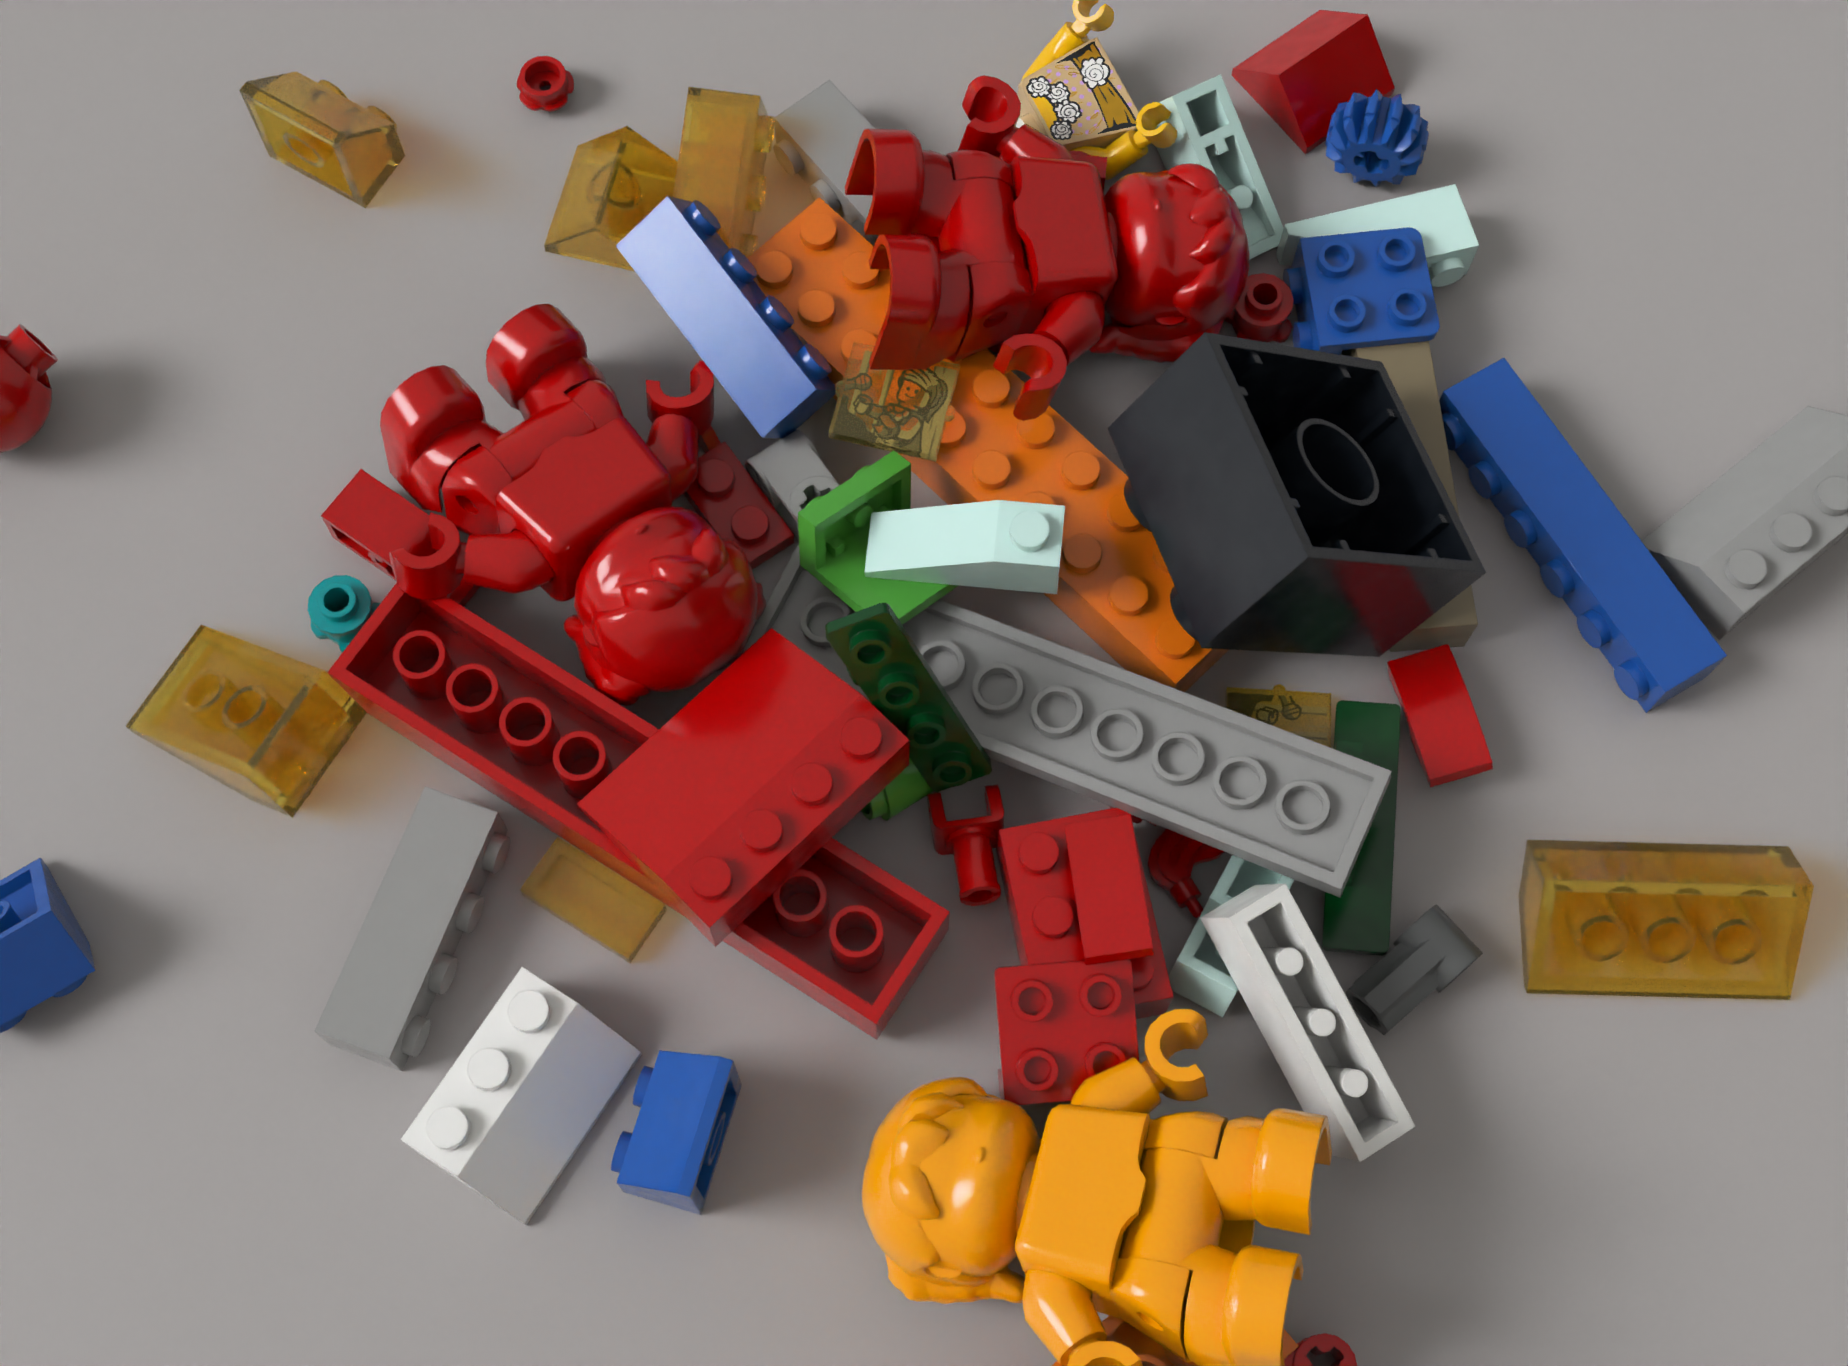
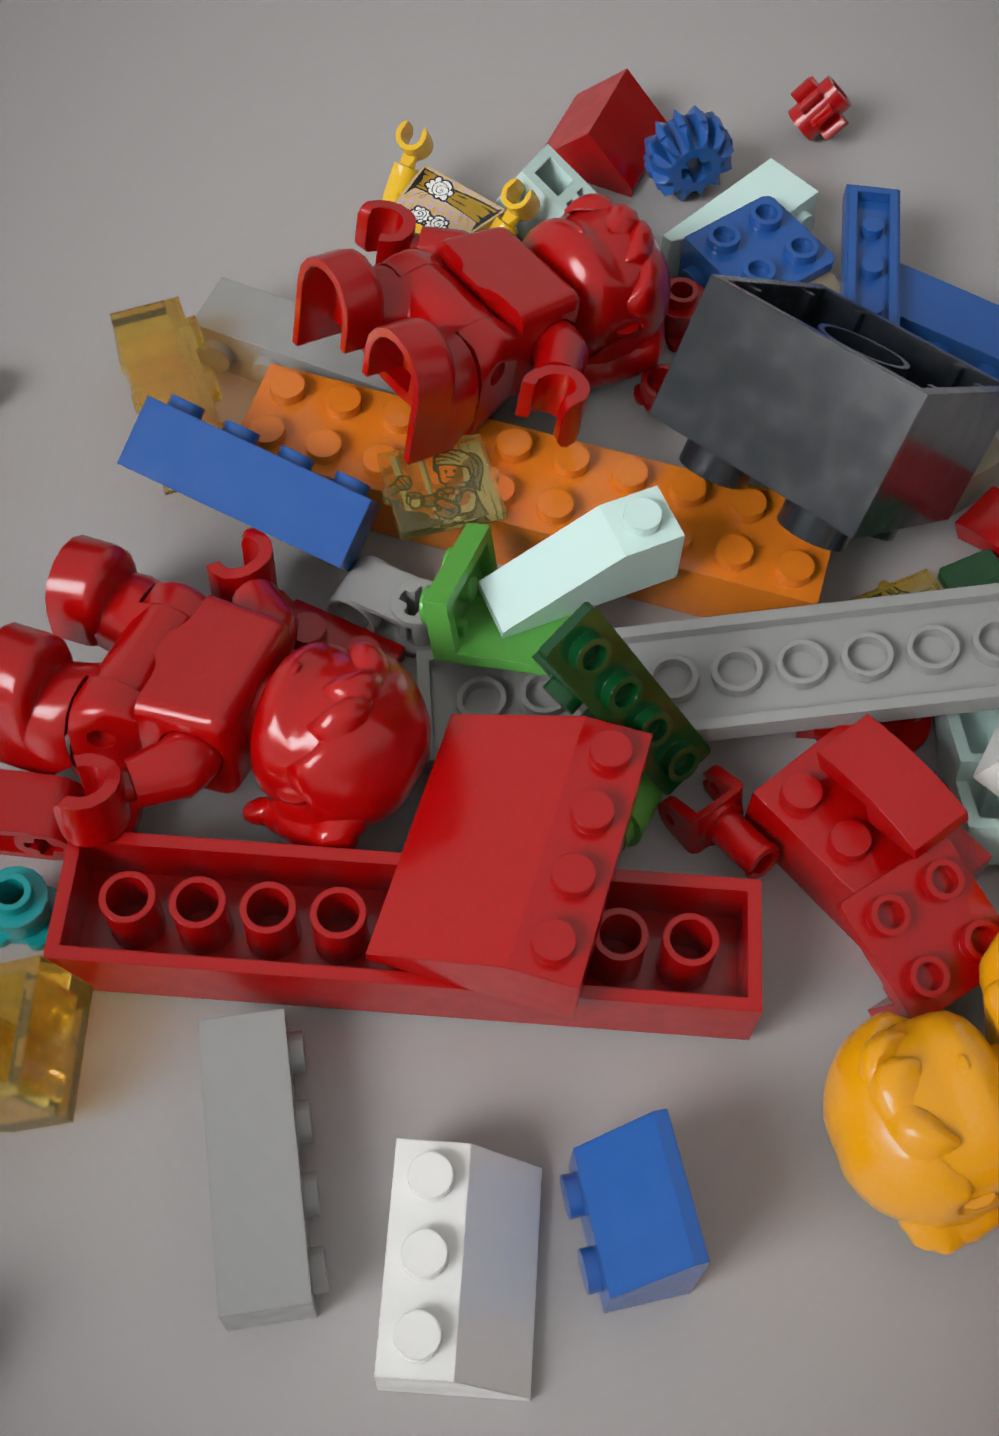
camera: 30 degrees left, 10 degrees down
(593, 900) = (411, 1051): clear yellow tile -> none
(607, 194) = (74, 452): clear yellow slope -> none
(1474, 351) = (871, 249): none -> blue tile
(1558, 142) = (819, 108): none -> red gear

